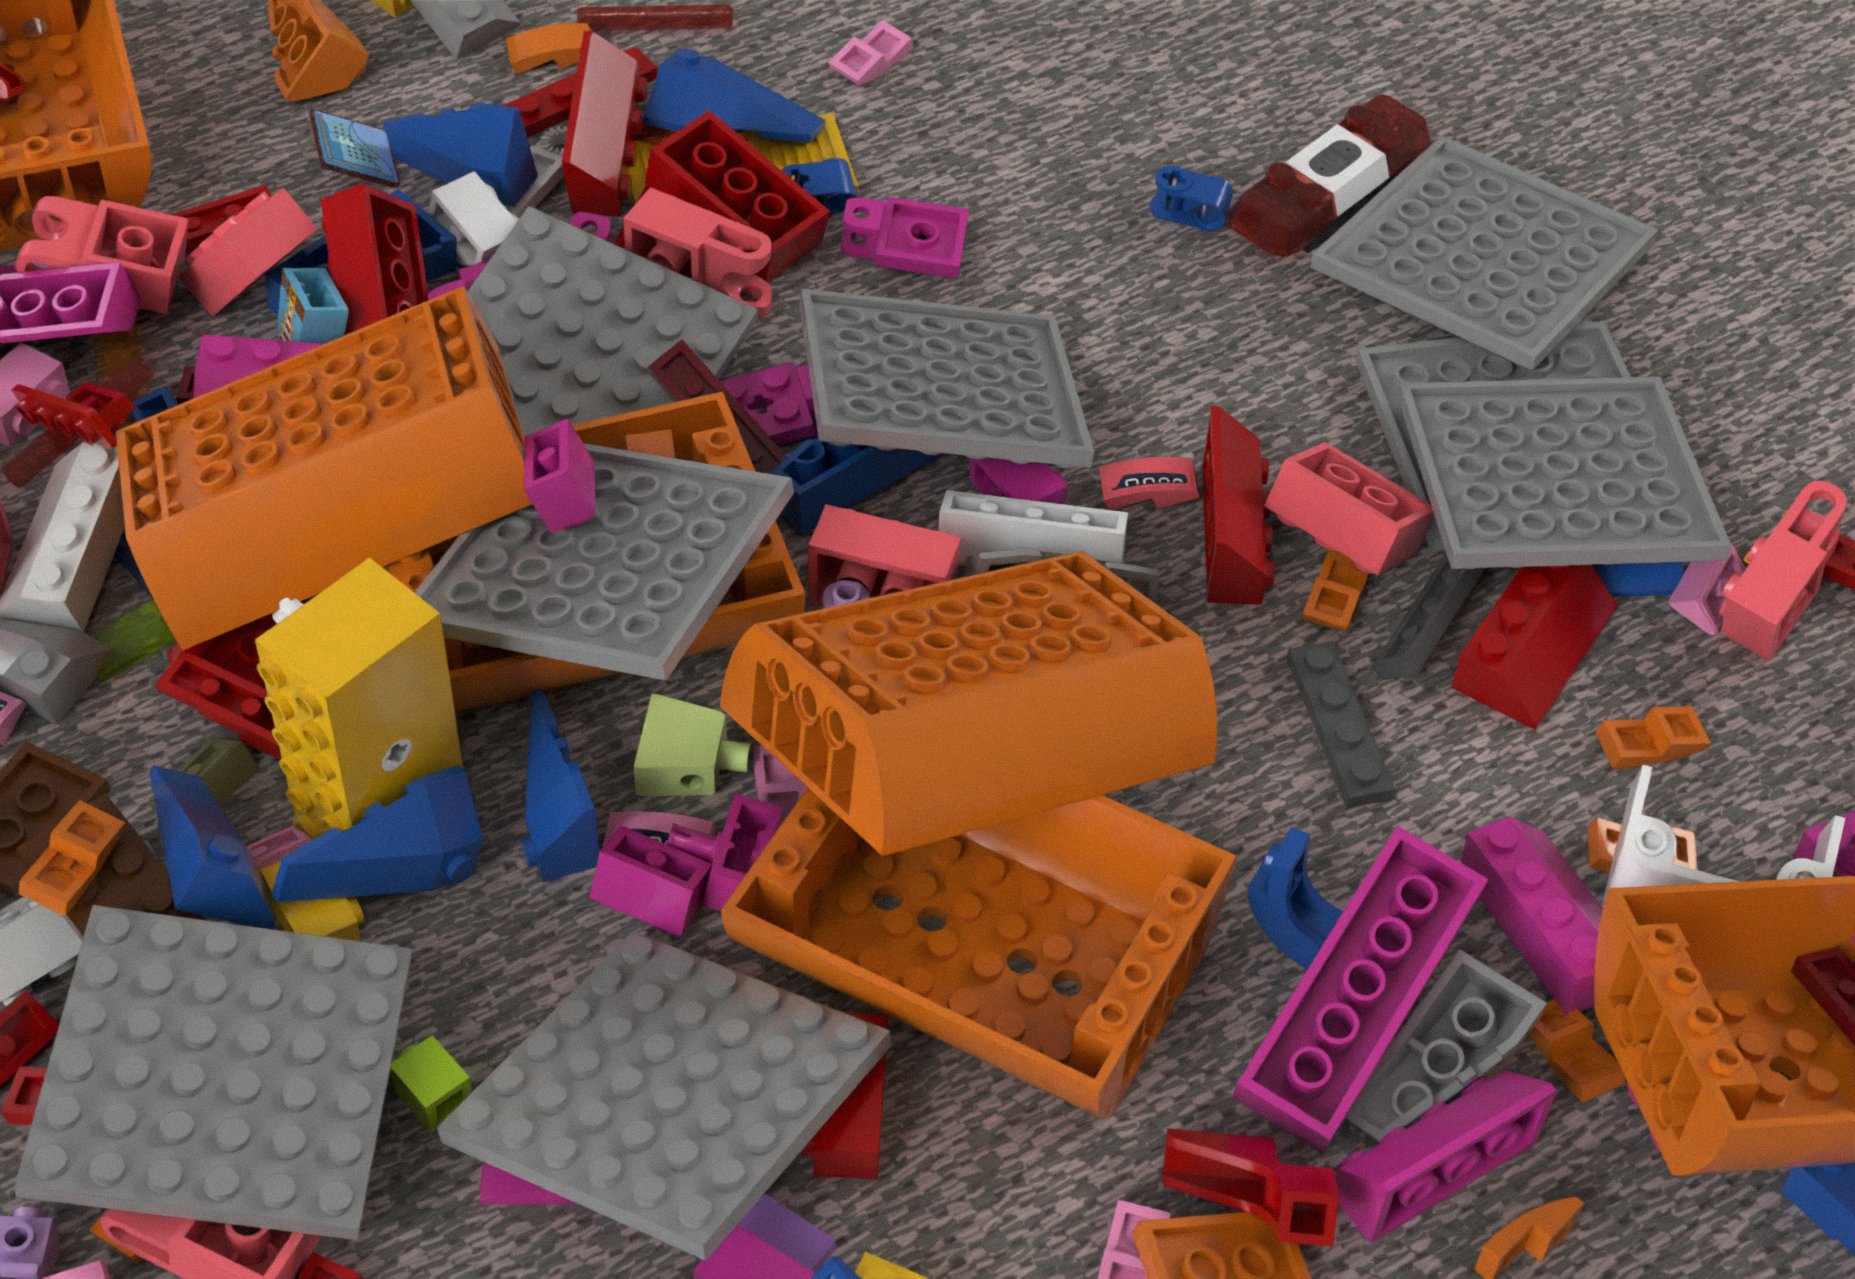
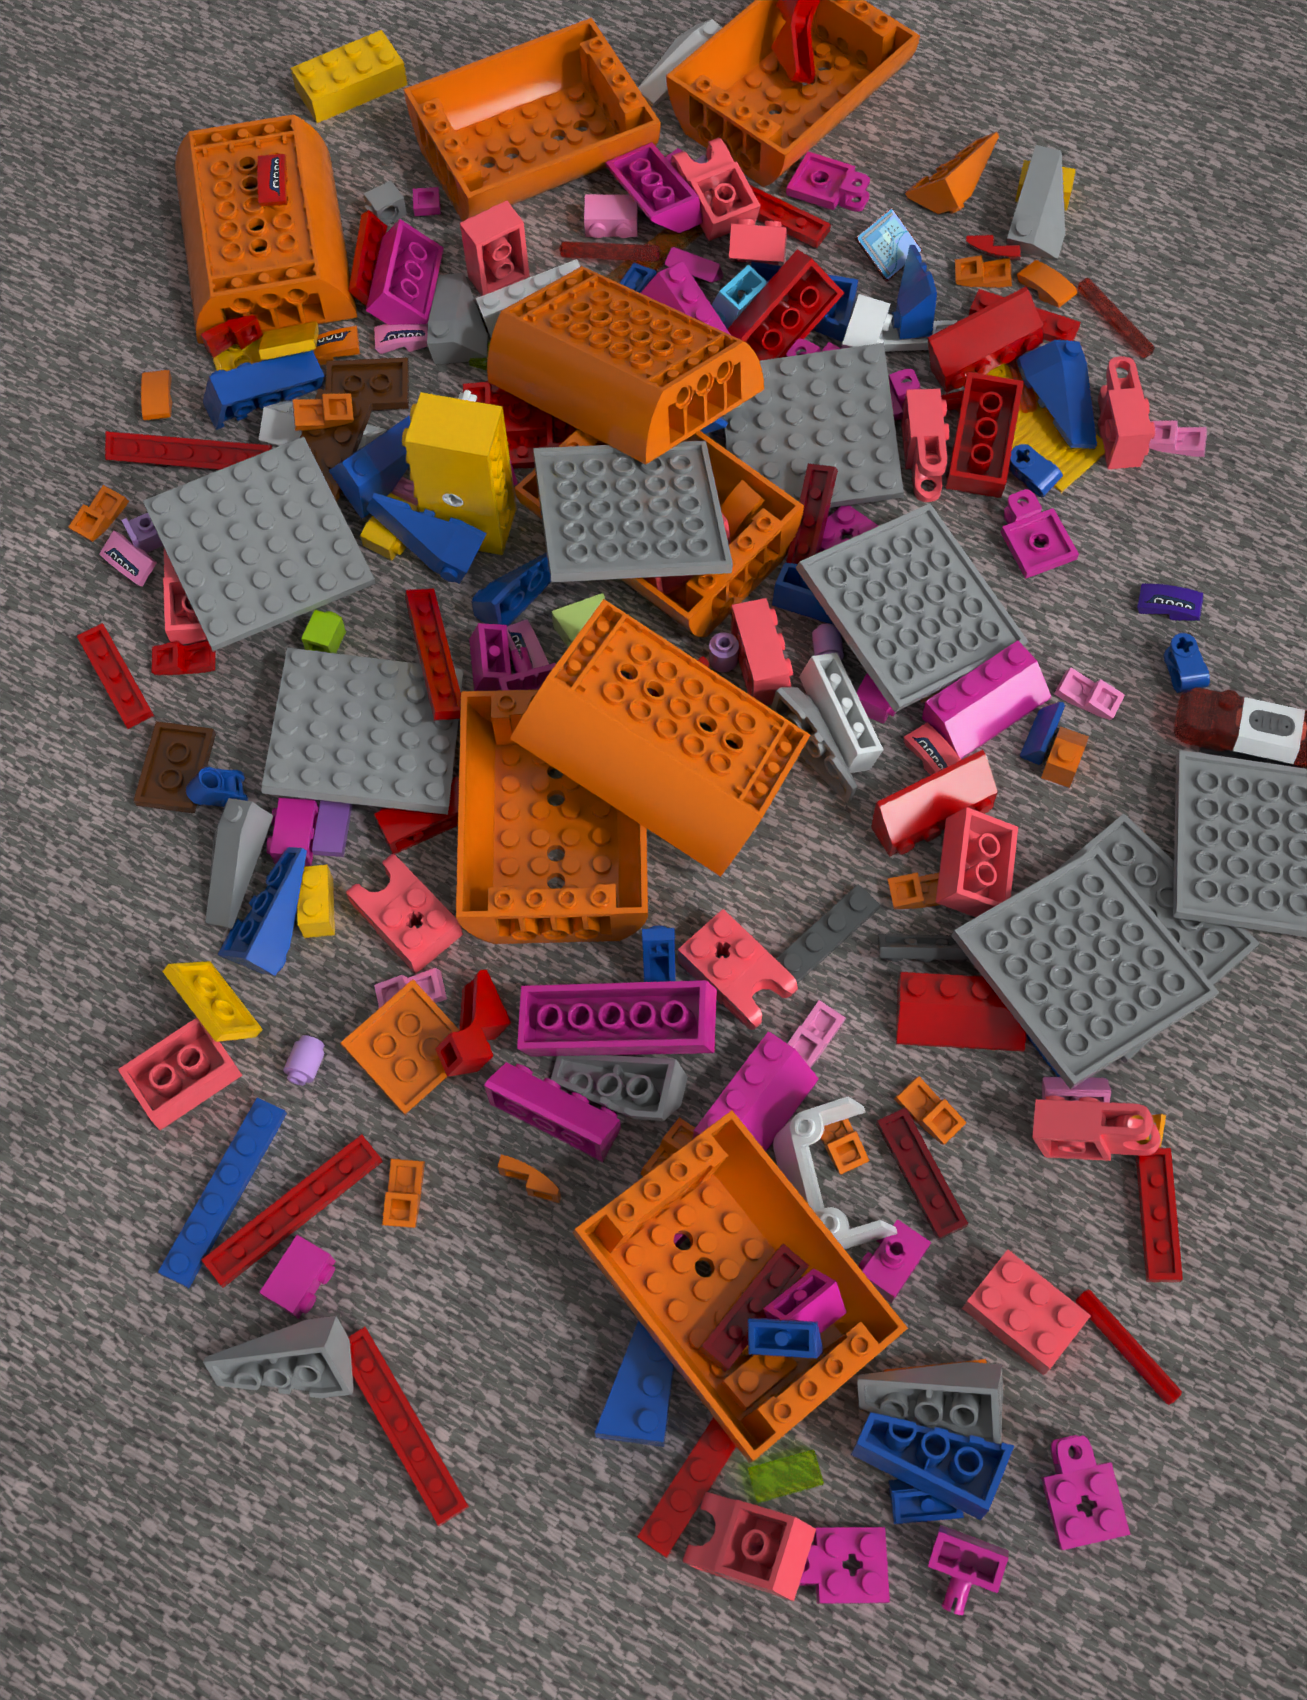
camera: 65 degrees right, 15 degrees up
(86, 413) = (593, 245): red bracket -> none
(184, 348) = (697, 265): none -> dark pink slope
(209, 154) = (838, 185): none -> dark pink plate
(450, 64) = (985, 245): none -> red slope
(485, 84) = (976, 273): none -> orange slope
(559, 476) = (655, 461): dark pink brick -> none
(596, 940) = (434, 654): none -> red plate
(816, 67) = (1124, 417): none -> coral brick
(911, 503) = (827, 640): none -> lavender brick
(1008, 1196) = (402, 907): none -> coral brick
(1092, 169) = (1178, 602): none -> dark purple slope
(1112, 387) = (987, 699): none -> dark pink slope
(1170, 302) = (1093, 697): none -> bright pink slope
(1193, 366) = (1042, 733): none -> blue slope
(1243, 363) = (1065, 757): none -> orange slope
(1345, 822) = (741, 973): none -> coral brick
(1472, 794) = (816, 1032): none -> bright pink slope
(1742, 786) = (922, 1174): none -> dark red plate

